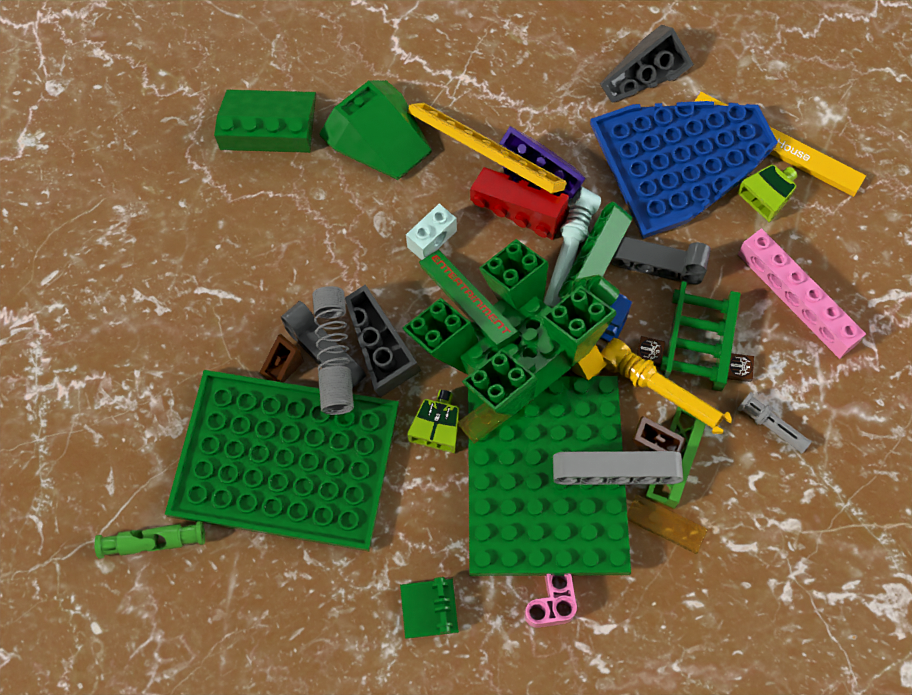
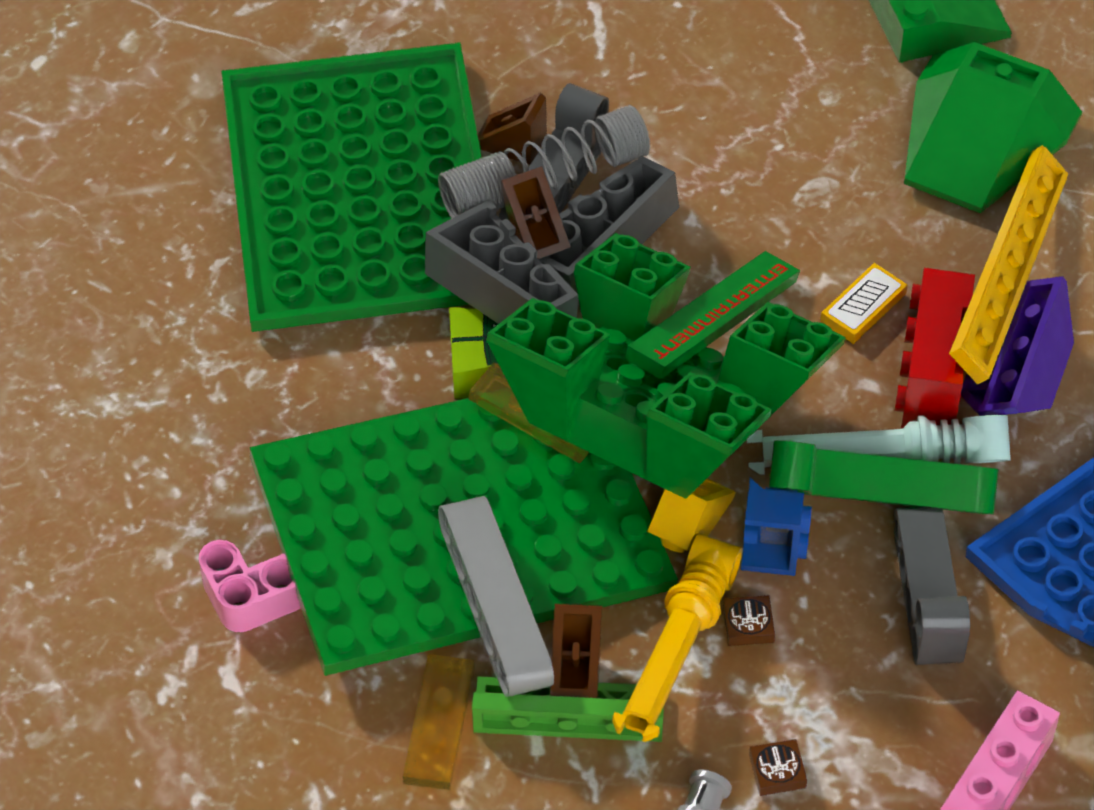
camera: 70 degrees right, 15 degrees down
(137, 540) = (180, 71): bright green piece -> none
(375, 366) = (534, 212): none -> reddish brown slope
(409, 397) = (491, 267): none -> dark grey wedge
(429, 608) = (187, 431): green hinge -> none
(431, 232) = (823, 246): light aqua brick -> none
(471, 228) = (864, 303): none -> tile
(720, 350) = (815, 725): green fence -> none

